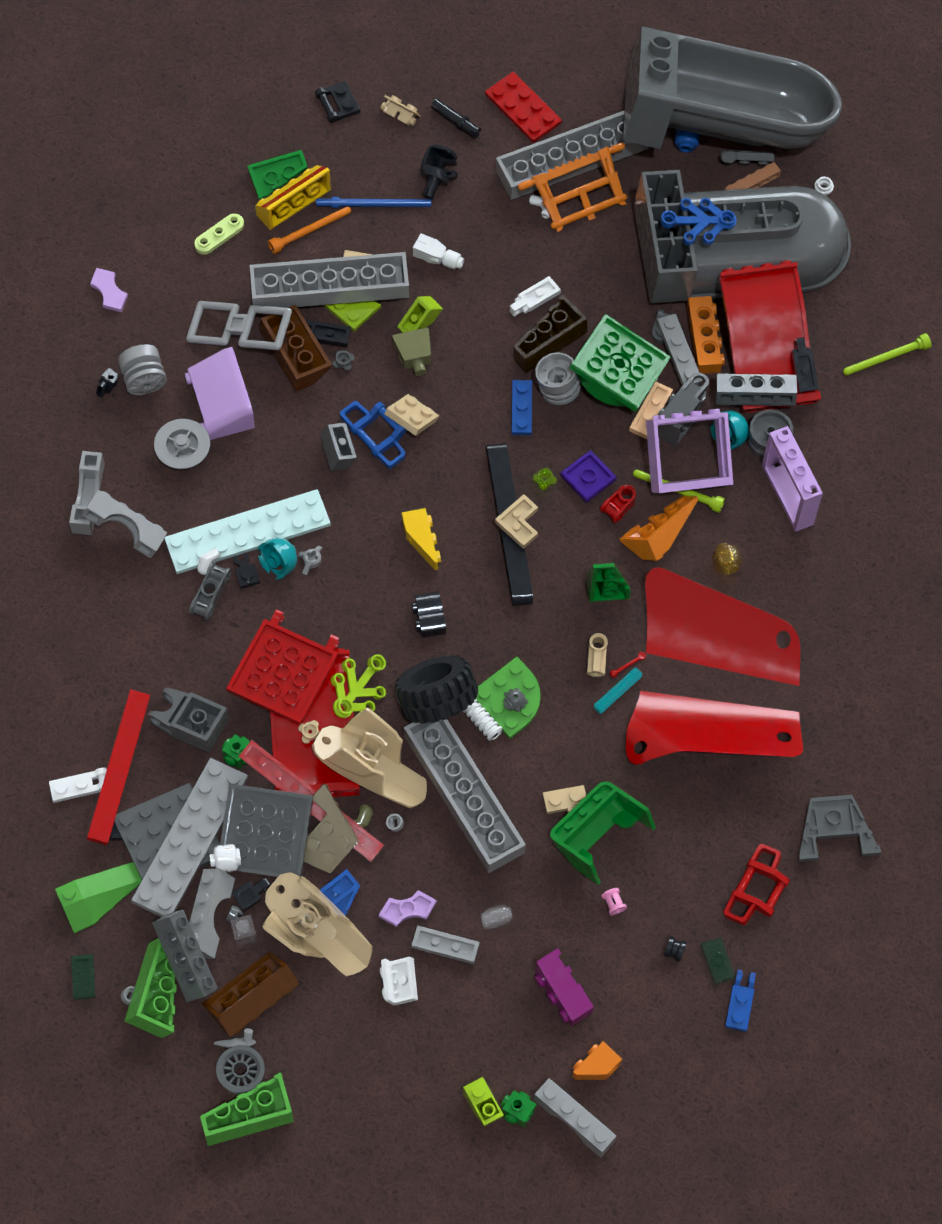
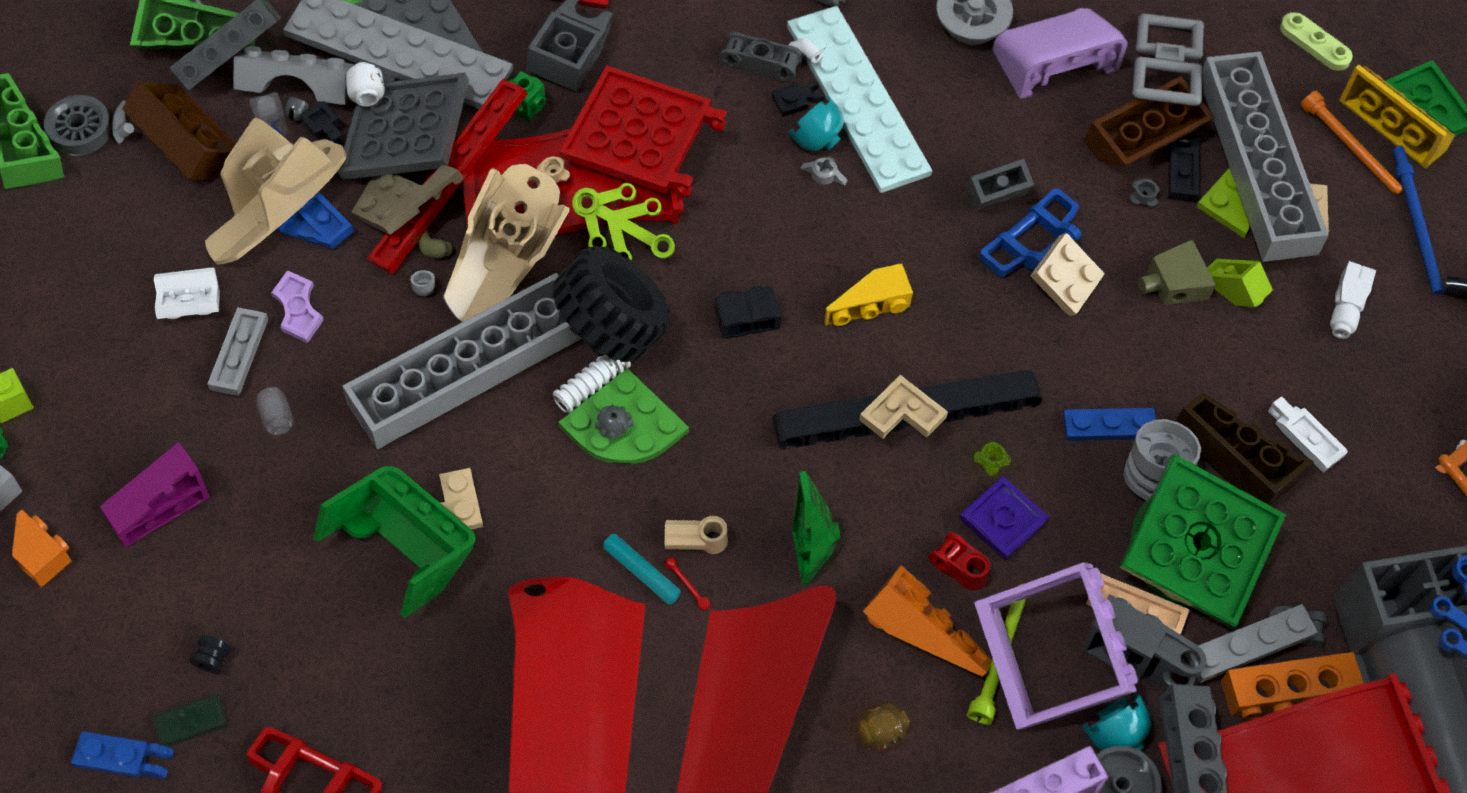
camera: 85 degrees right, 5 degrees down
(614, 894) = (292, 567): bright pink bush -> none

